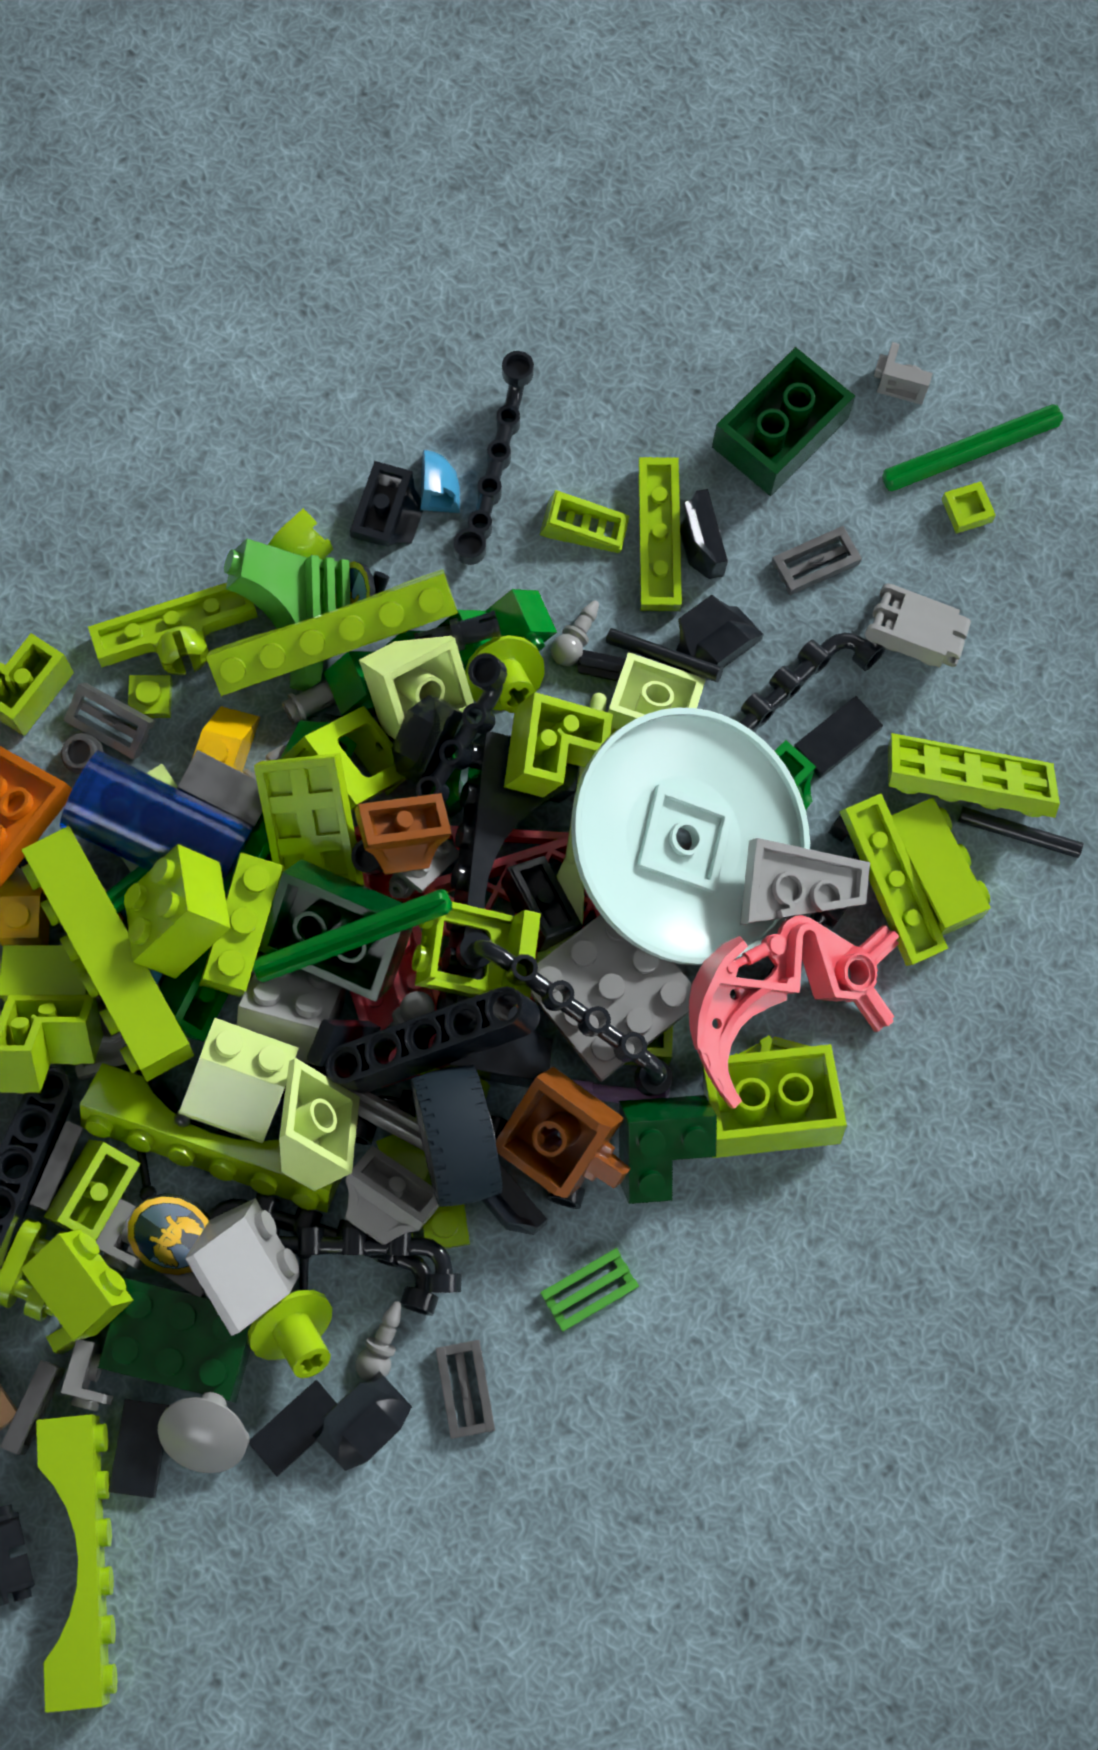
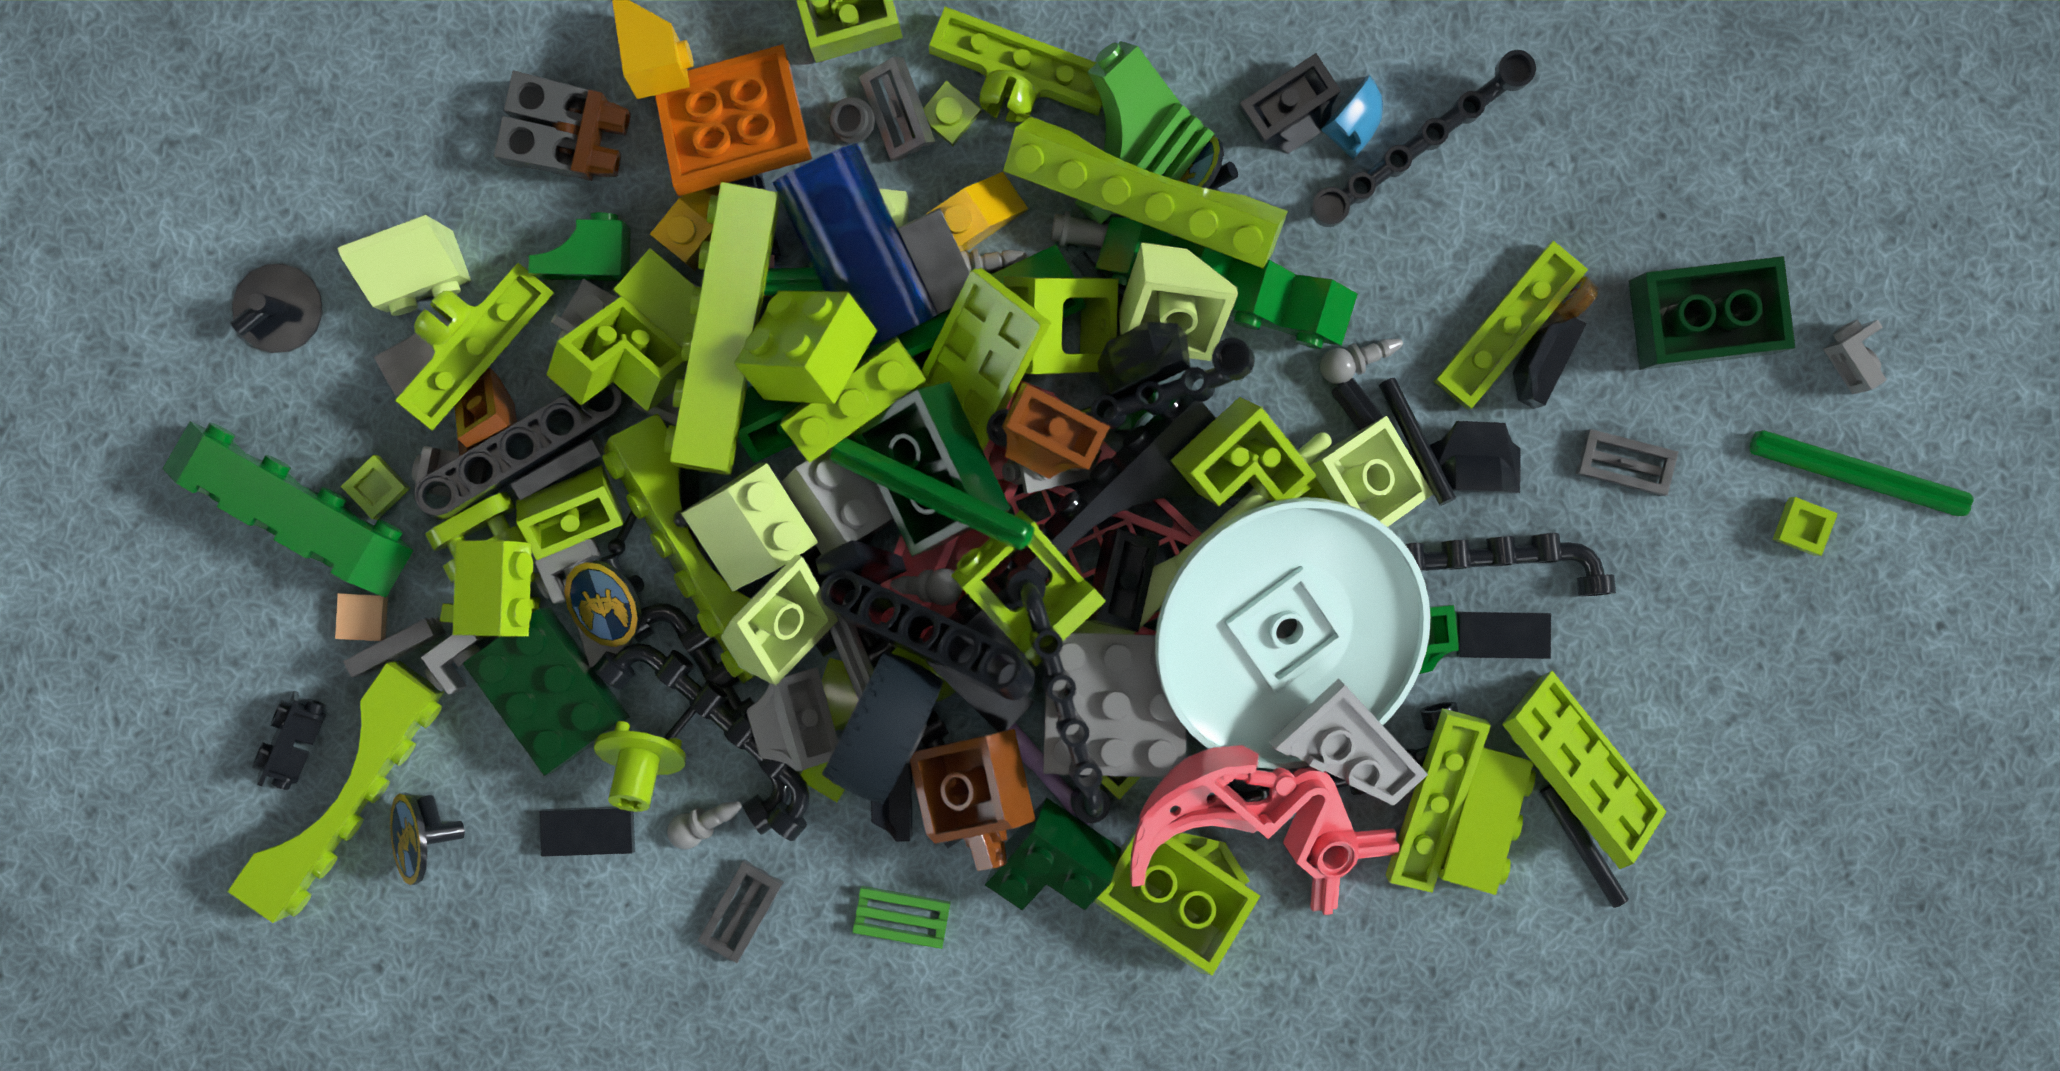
camera: 40 degrees right, 15 degrees up
(138, 1450) = (454, 745): black tile -> none
(161, 1541) = (414, 827): none -> shield
(203, 1434) = (507, 780): light grey dish -> none
(243, 1265) = (631, 684): slope -> none
(300, 537) = (1189, 75): lime brick -> none
(363, 1422) = (640, 874): black slope -> none
(466, 631) = (1253, 286): black pin -> none
(523, 668) = (1278, 349): lime piece -> none
(581, 535) = (1429, 255): lime slope -> none
(688, 480) = (1578, 299): none -> clear orange tile
(918, 627) = (1659, 601): light grey plate -> none

